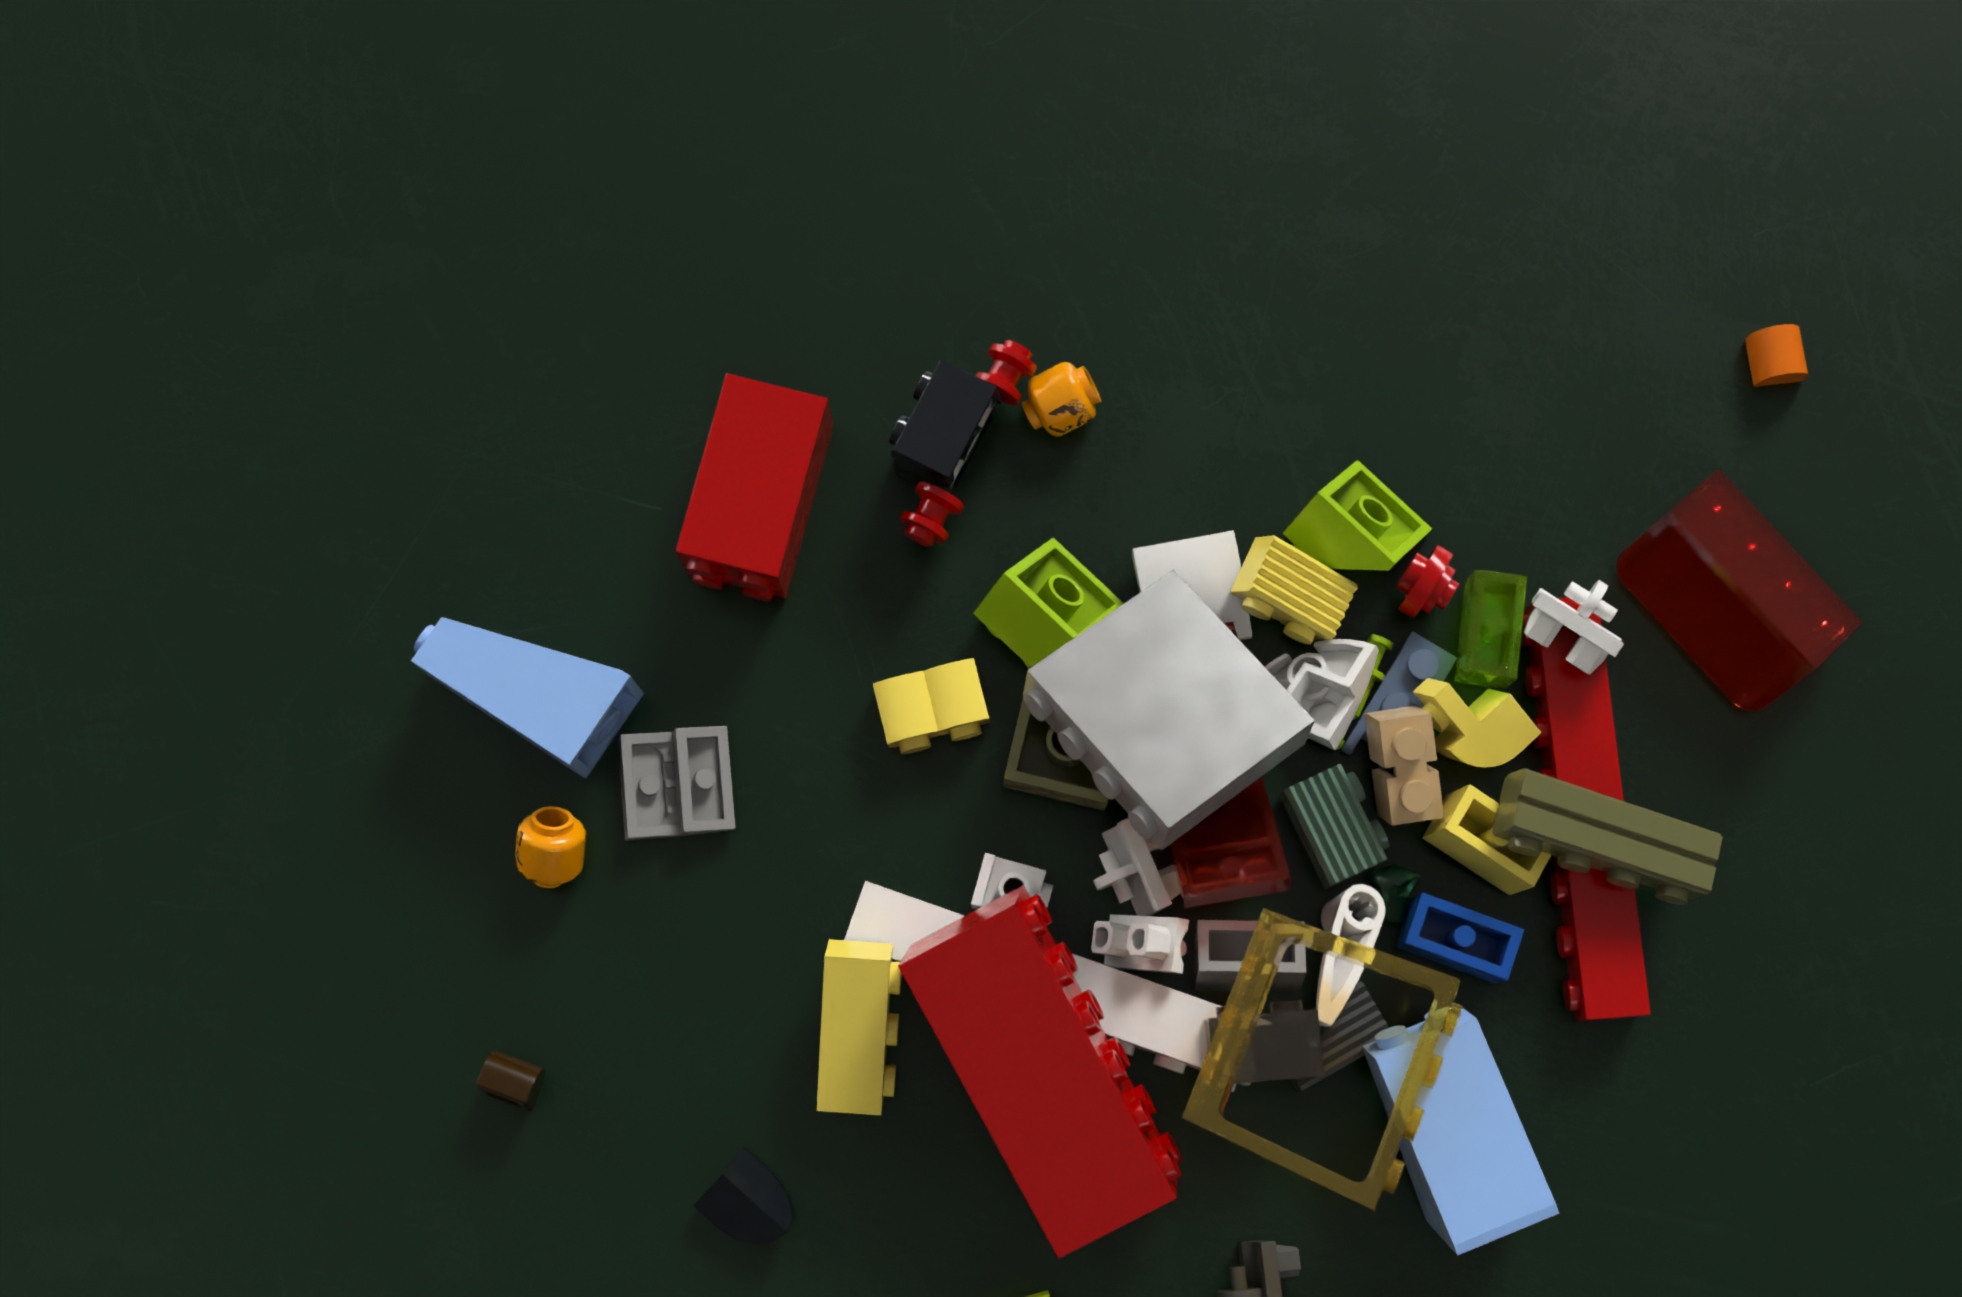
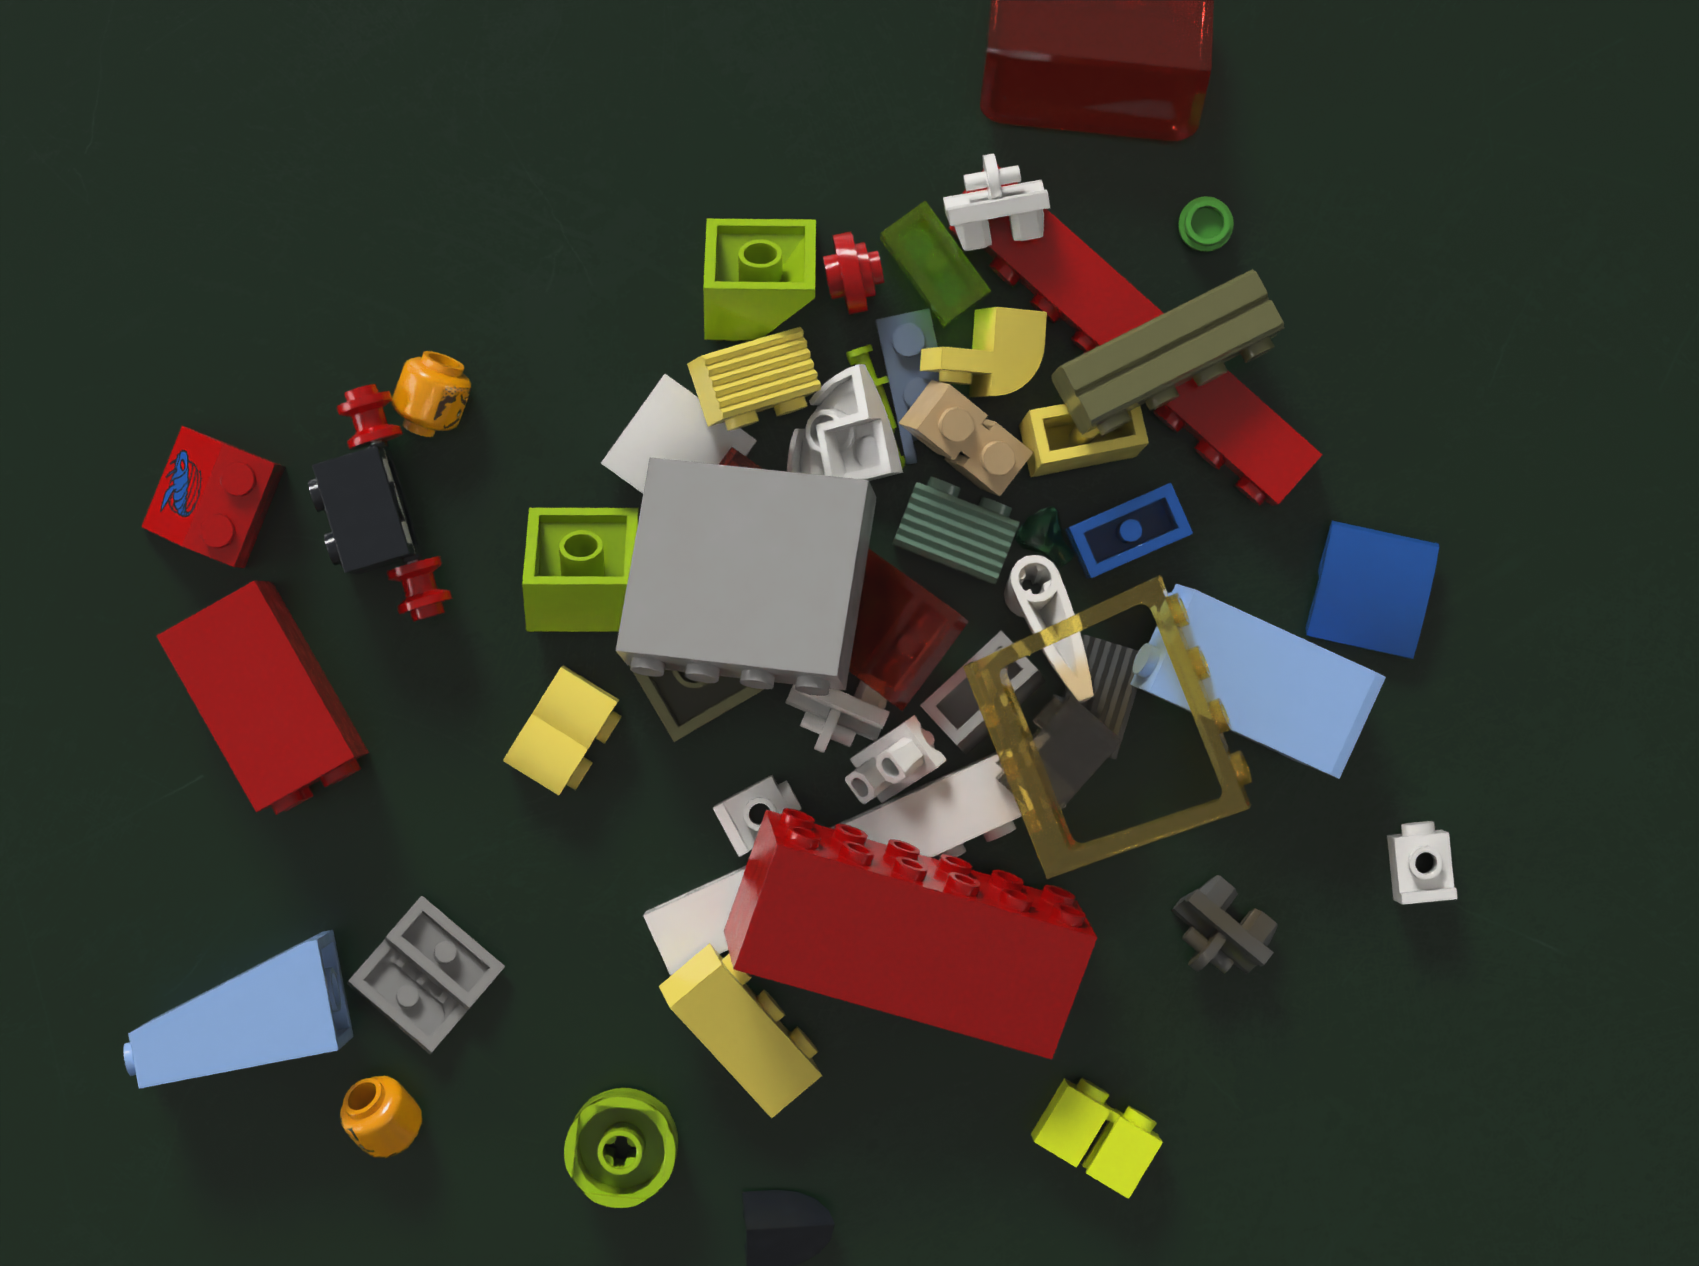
camera: 40 degrees left, 10 degrees up
(661, 1028) = (595, 1164): none -> lime brick
(851, 334) = (213, 497): none -> red slope
(1597, 1149) = (1372, 589): none -> blue slope
(1706, 781) = (1205, 224): none -> bright green plate

